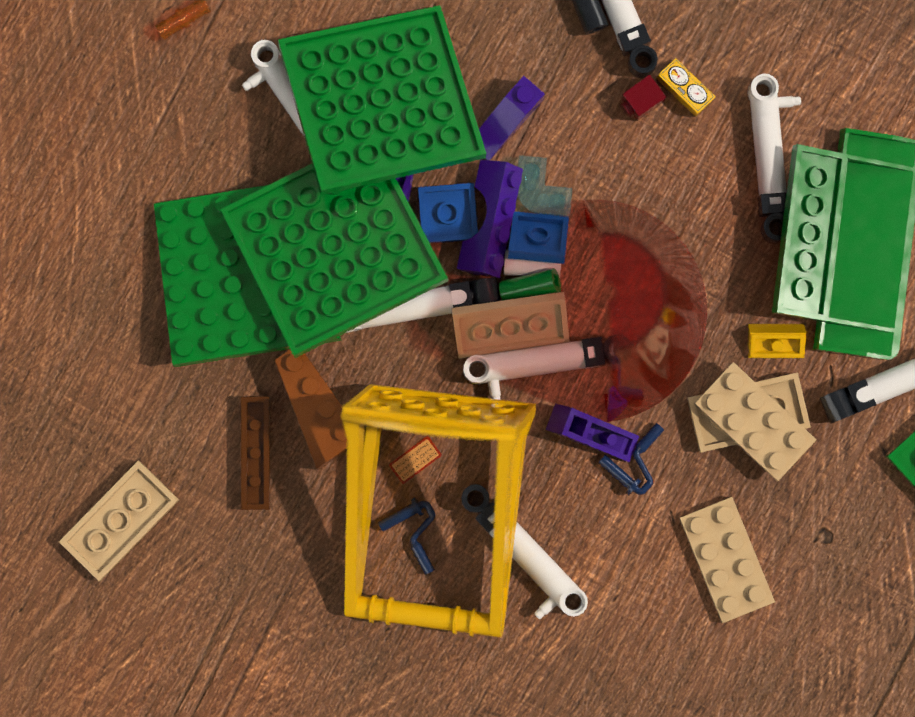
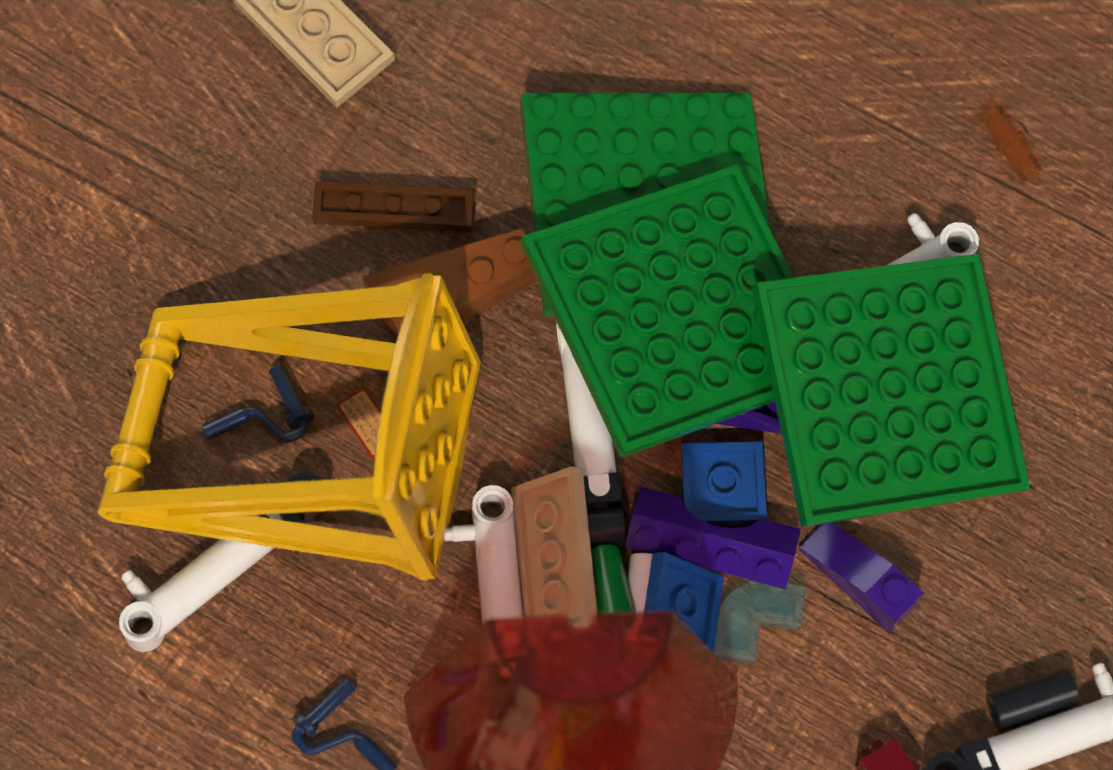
camera: 85 degrees right, 15 degrees down
(592, 432) = (388, 669): dark purple slope -> none

